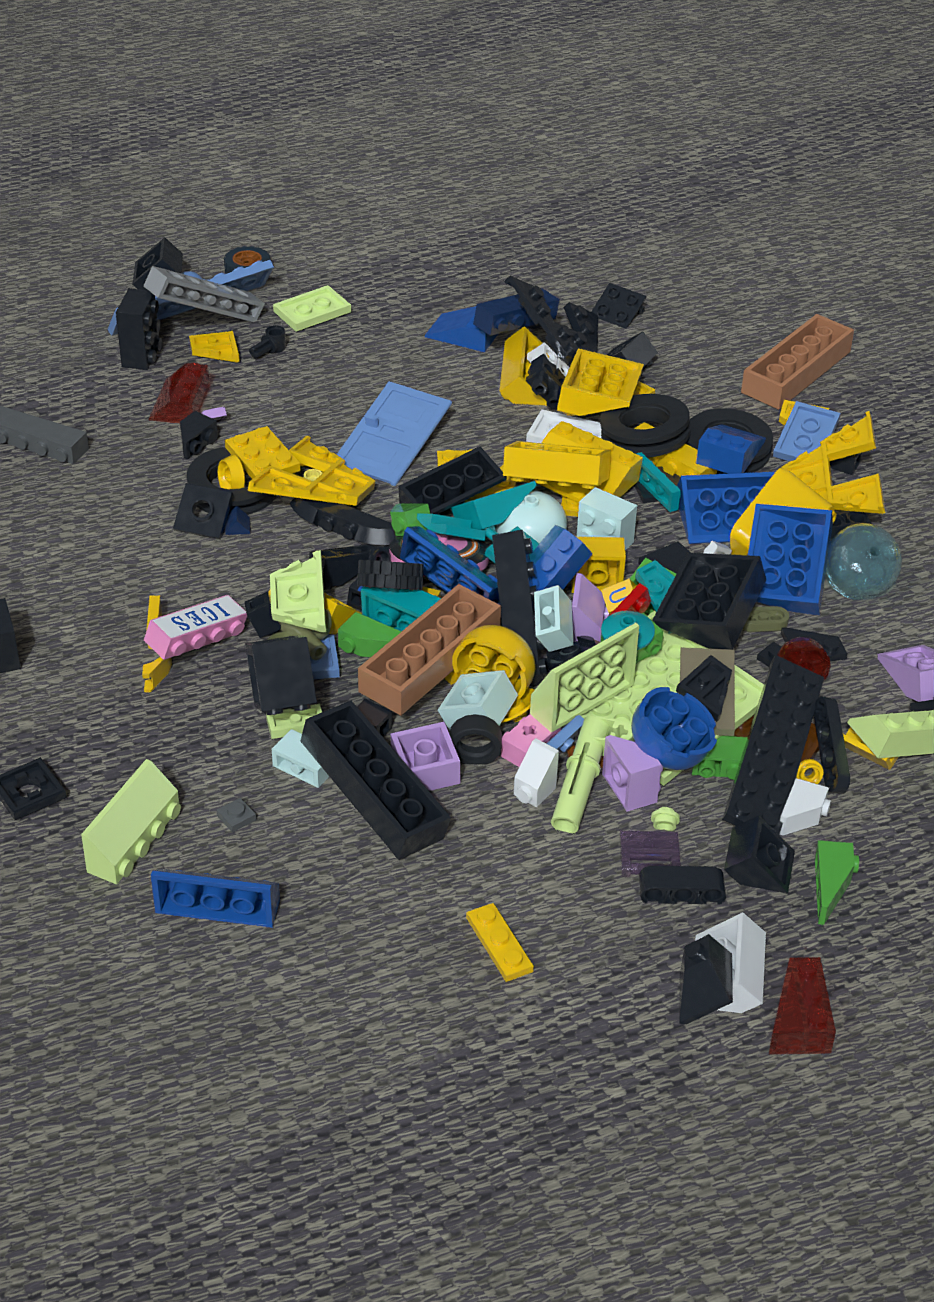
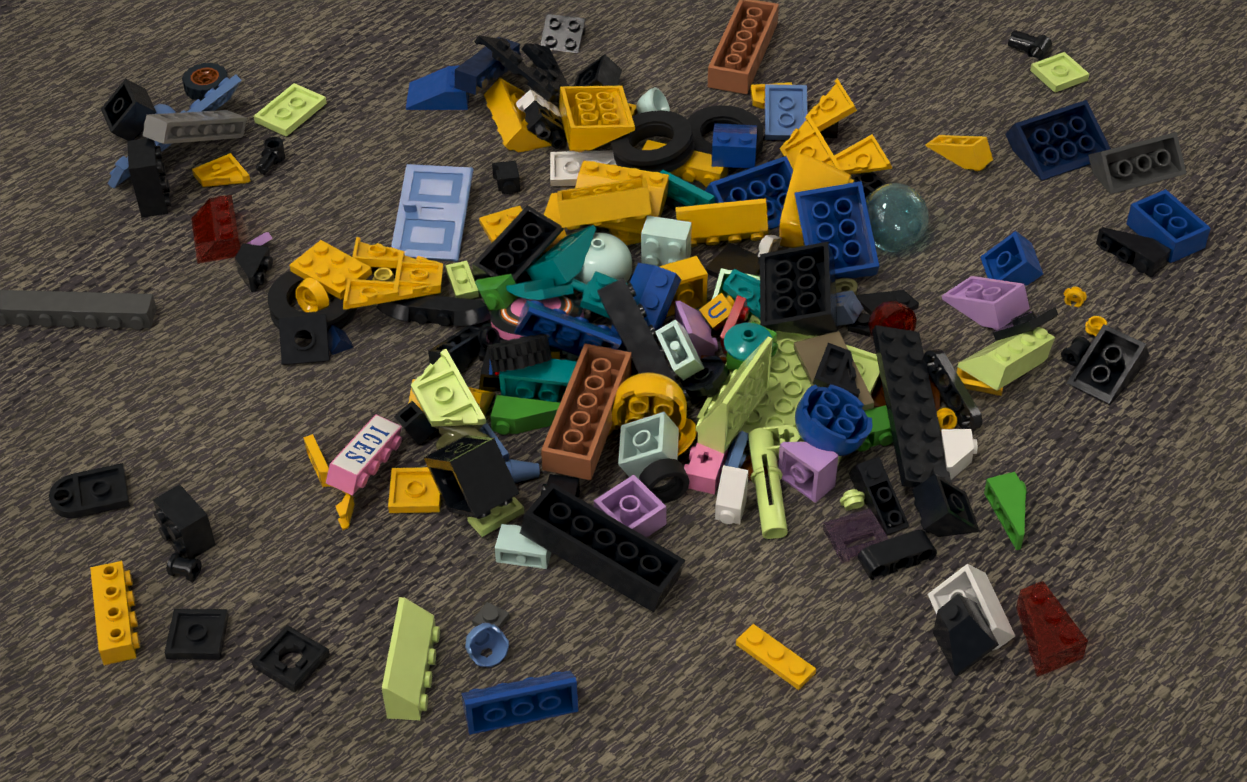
camera: 20 degrees left, 5 degrees up
(214, 827) = (483, 637): none -> medium blue hair
(226, 677) = (413, 491): none -> yellow plate
(340, 689) = (523, 470): none -> medium blue cone
(385, 499) = (462, 280): none -> yellowish green plate
(484, 420) = (507, 176): none -> black window
(673, 386) = (652, 101): none -> light aqua hat
(678, 516) = (726, 221): none -> yellow slope
(695, 822) = (879, 495): none -> black slope
(759, 634) = (847, 308): none -> sand blue brick

